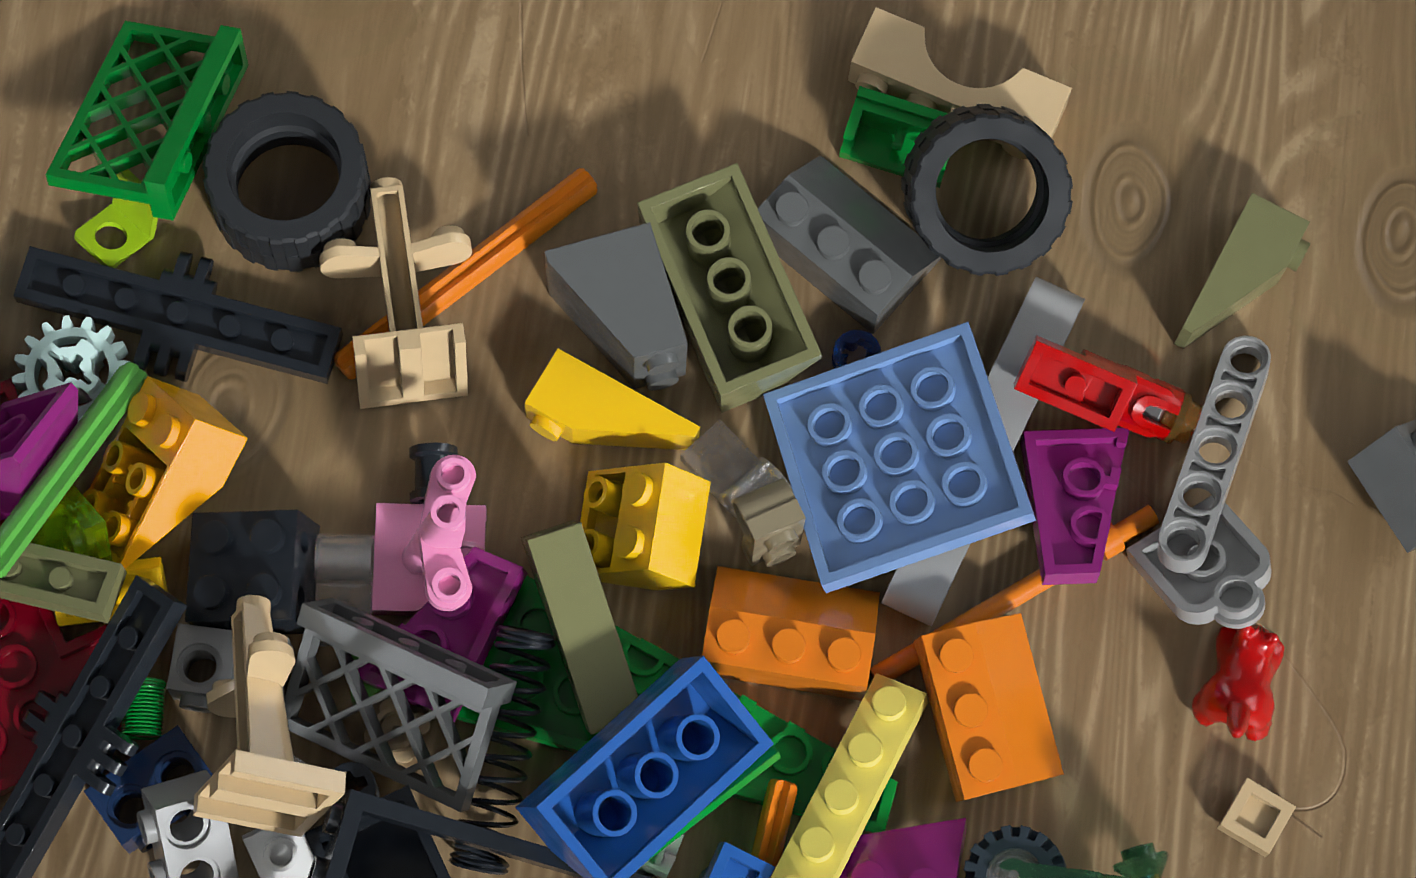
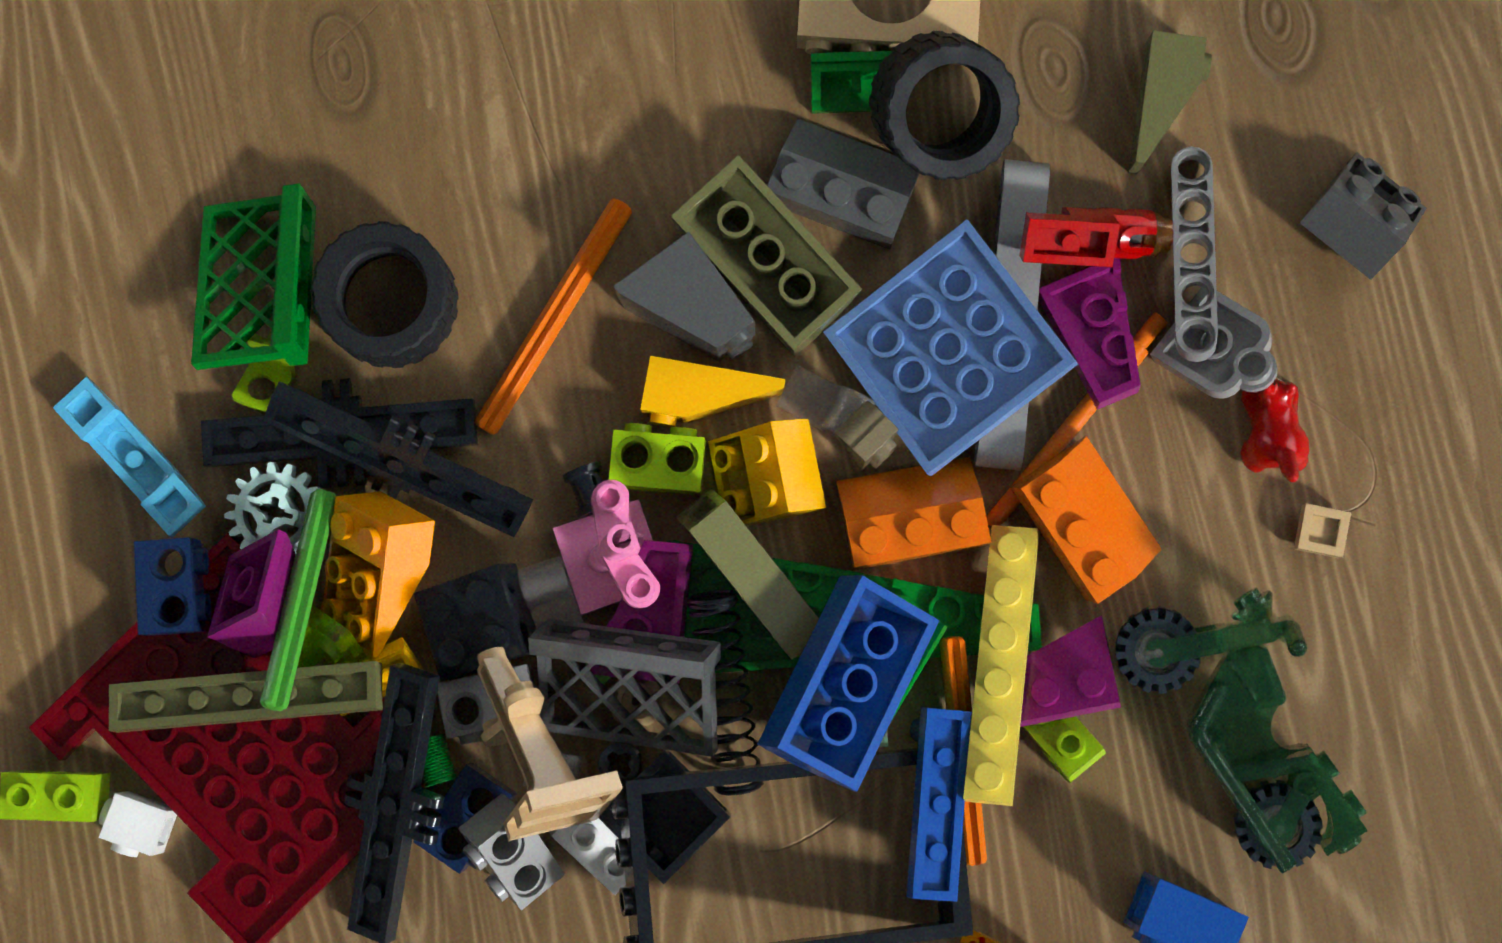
camera: 10 degrees left, 10 degrees up
(232, 361) = (397, 459): none -> black hinge
(408, 360) = (538, 406): tan piece -> none
(514, 483) = (655, 473): none -> lime brick
(850, 341) = (875, 262): clear blue bush -> none

